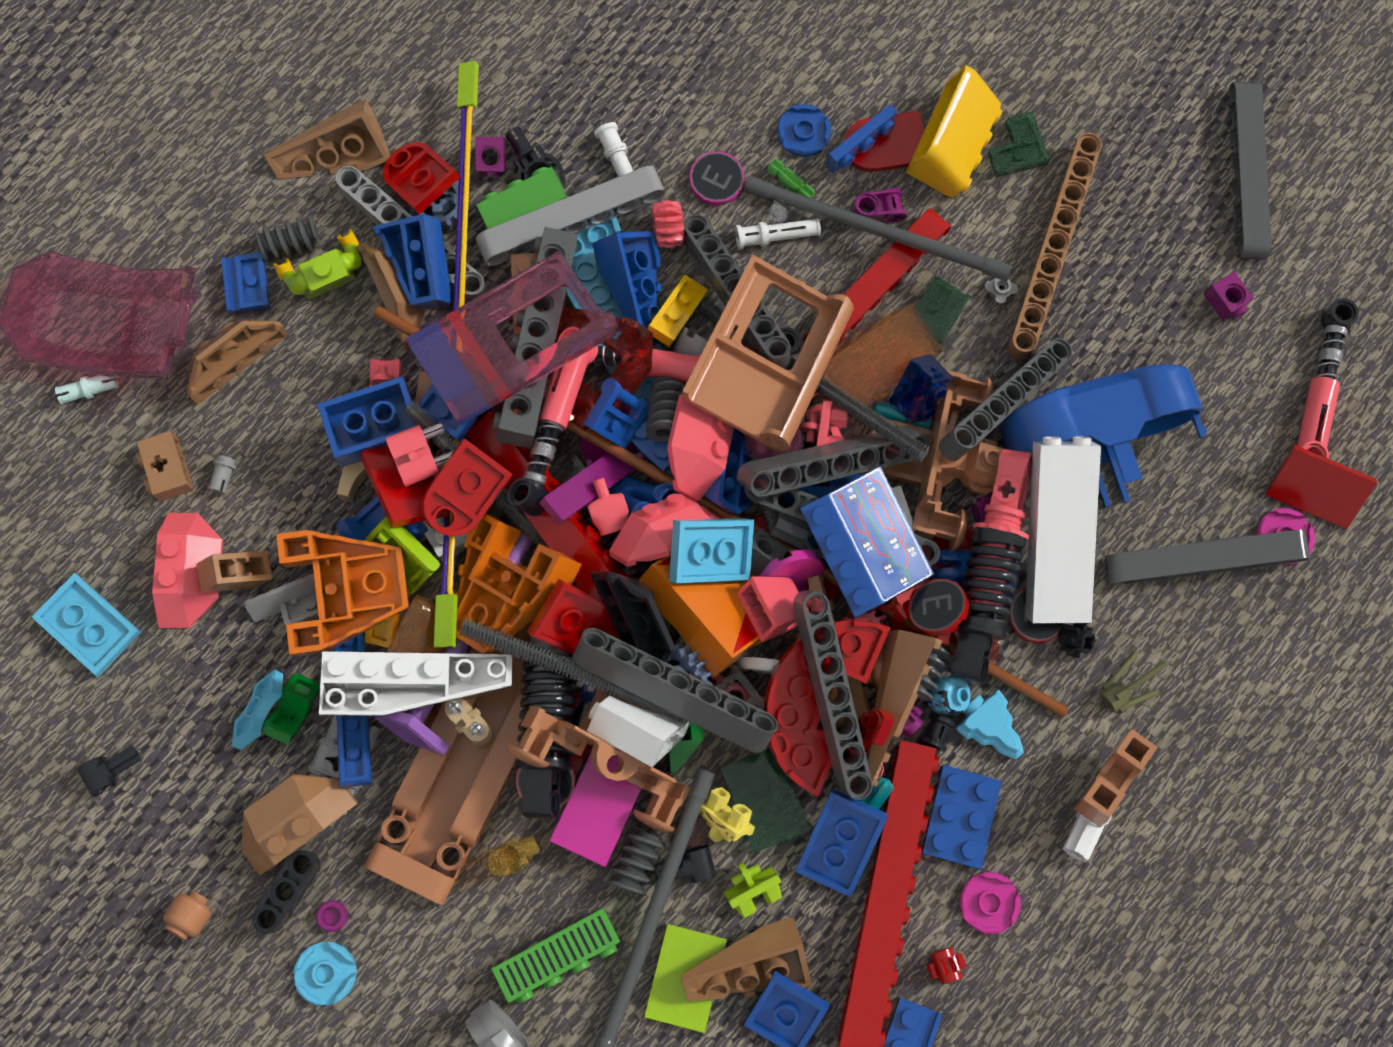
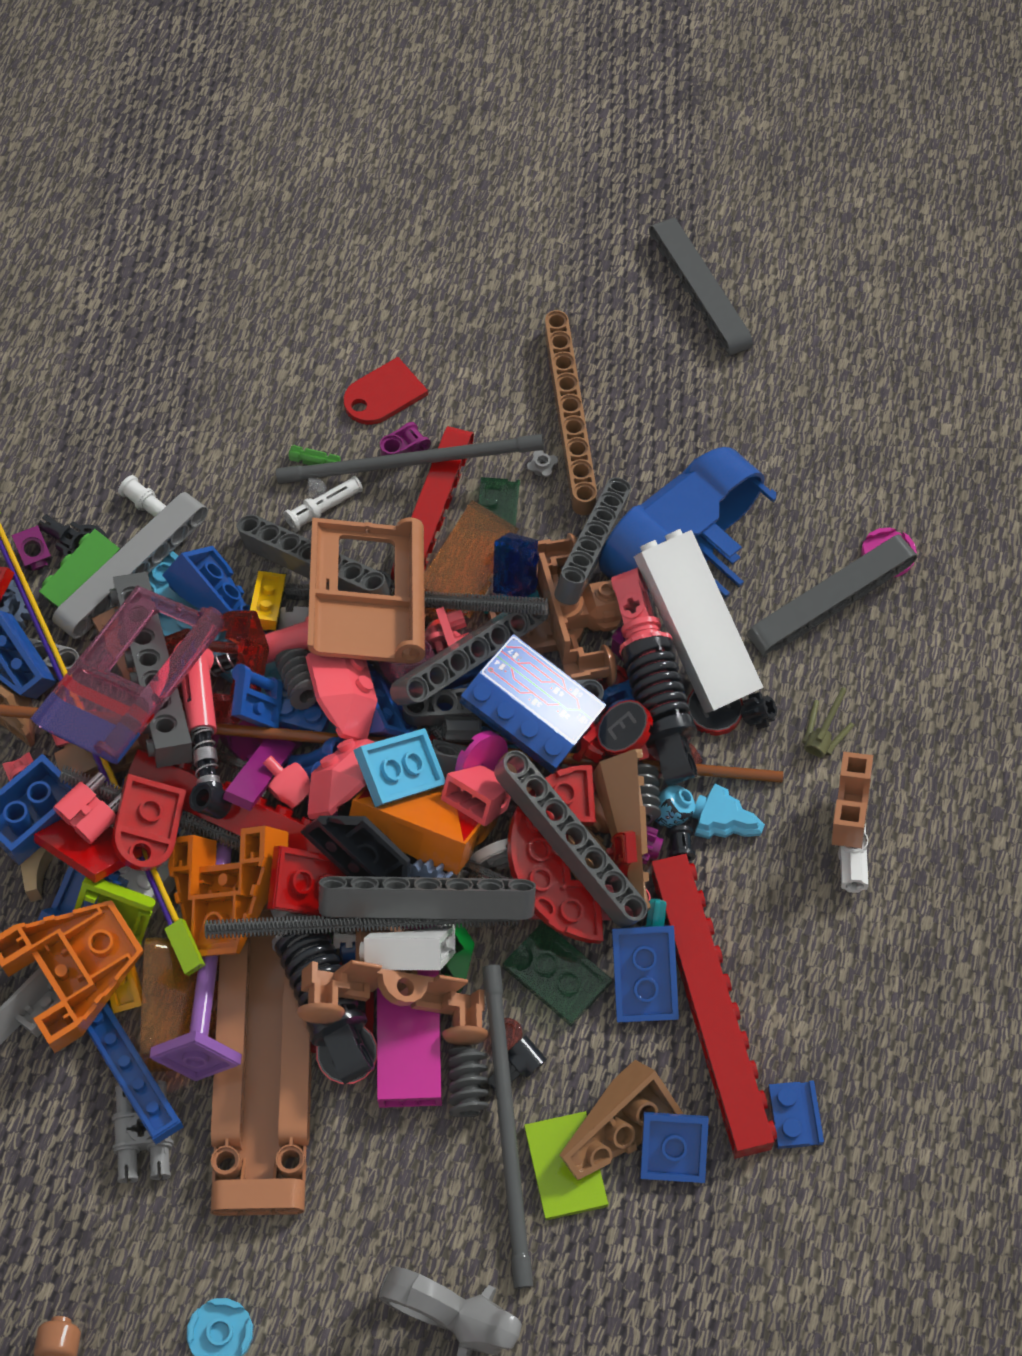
camera: 20 degrees left, 15 degrees down
(264, 696) = (37, 1130): medium azure tile -> none
(273, 899) = (141, 1257): black beam -> none
(291, 817) = (118, 1200): medium nougat wedge -> none
(292, 709) = (72, 1105): green slope -> none
(332, 916) = (201, 1276): magenta tile -> none
(405, 681) = (172, 1007): white wedge -> none
(436, 408) = (92, 764): blue plate -> none
(468, 721) = (246, 1025): tan piece -> none
(512, 856) = (350, 1129): clear yellow hips -> none
(556, 955) = (434, 1203): bright green brick -> none
(668, 224) = (222, 534): coral gear -> none
(716, 178) = (247, 483): black tile -> none
(724, 820) = (529, 1008): light yellow hips -> none
(749, 884) = (595, 1044): lime hips -> none
(806, 138) = (312, 418): blue tile -> none
(862, 139) = (360, 397): blue plate -> none
(946, 965) = (794, 1035): red gear -> none
(956, 134) = (439, 359): yellow windscreen -> none
(961, 817) = (740, 906): blue plate -> none
(984, 895) = (804, 975): dark pink tile -> none
(1024, 152) = (503, 351): clear green plate -> none
(1233, 287) = (737, 387): magenta brick -> none
(1321, 486) = (894, 497): red tile -> none
(1324, 388) = (855, 425): piece -> none

